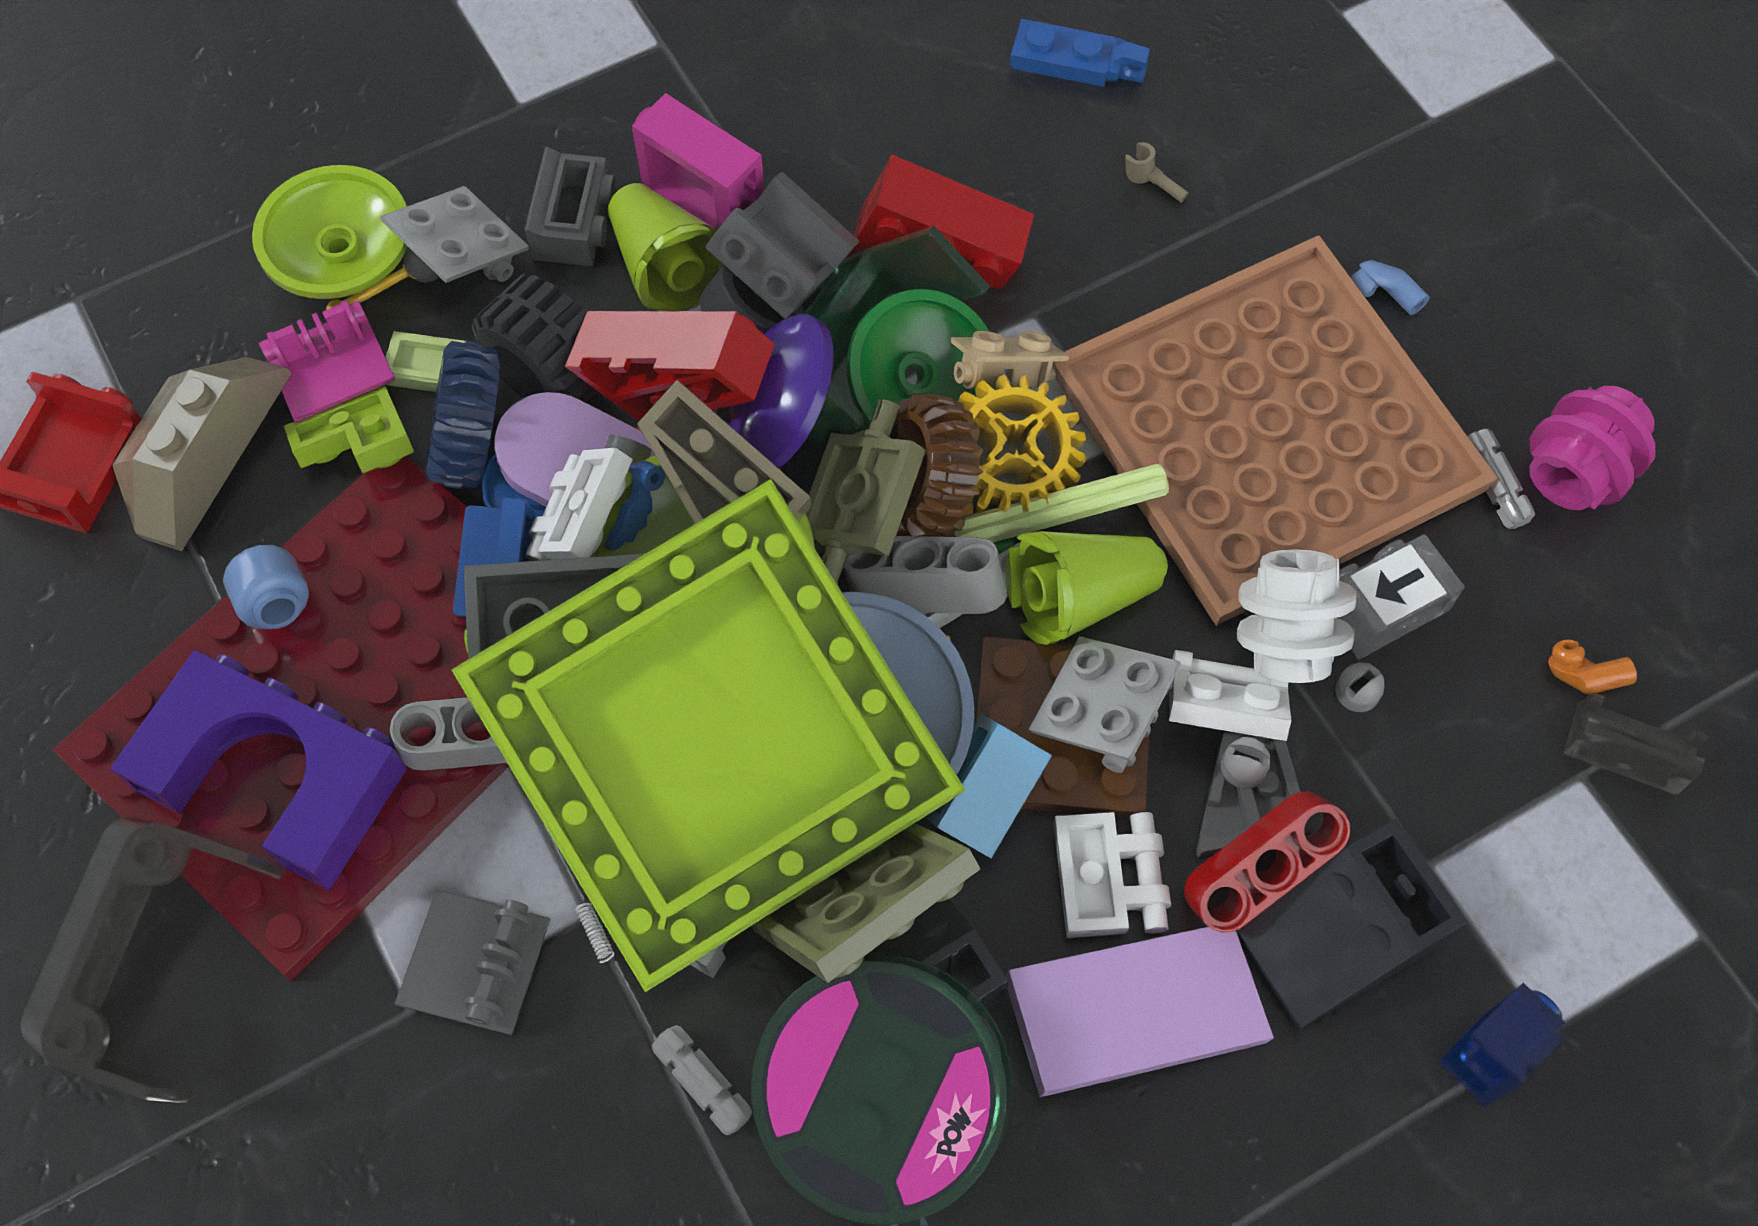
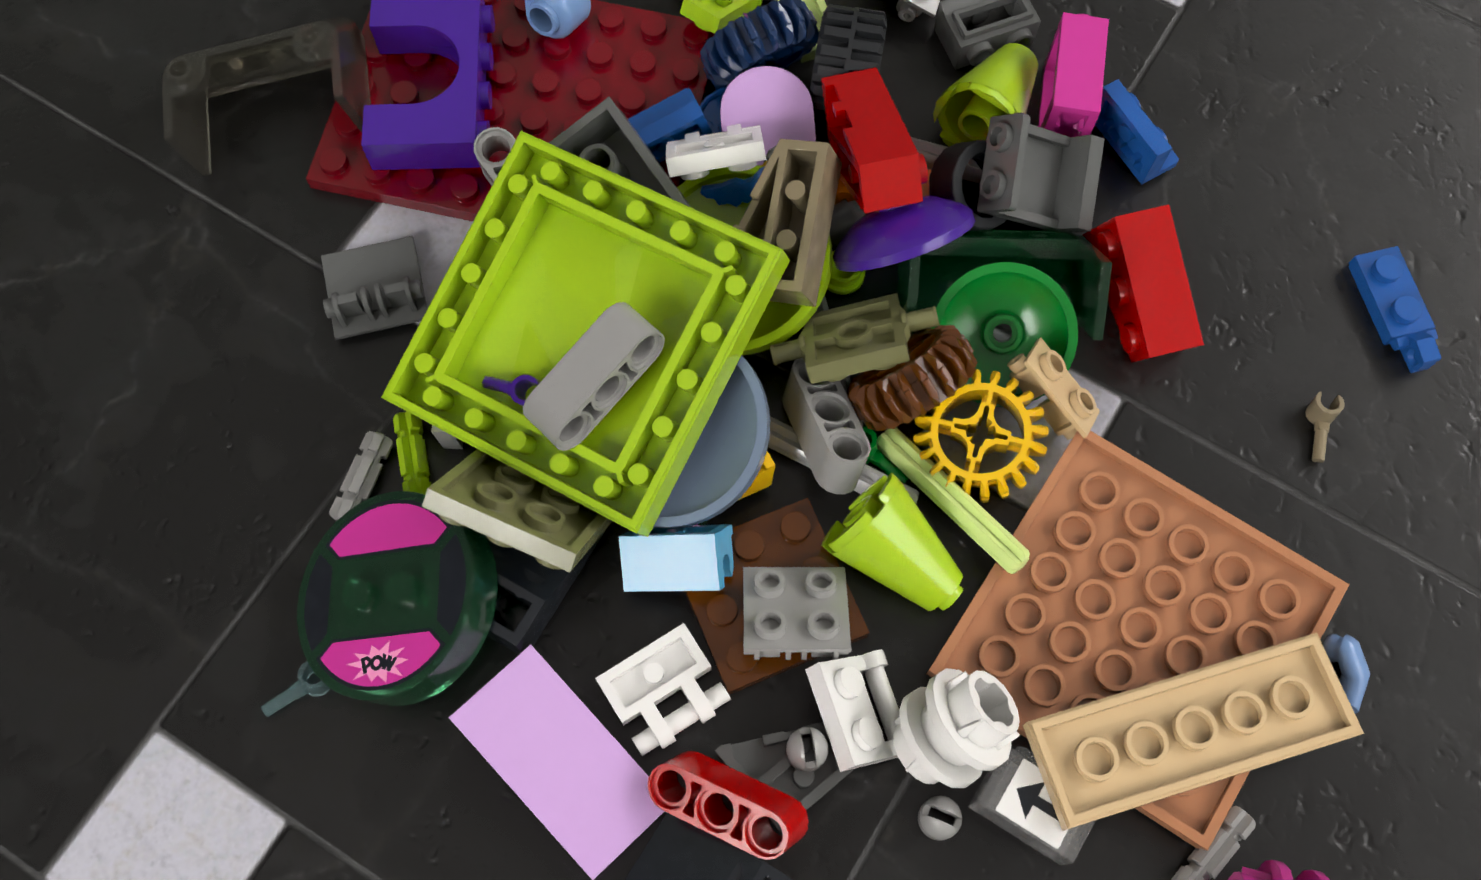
camera: 60 degrees right, 5 degrees up
(709, 1012) = (411, 452): none -> lime axle
(726, 841) = (515, 388): none -> dark purple hand
(784, 737) = (593, 376): none -> light grey beam
(791, 149) = (1133, 134): none -> blue bracket
(1391, 430) = (1190, 730): none -> tan tile

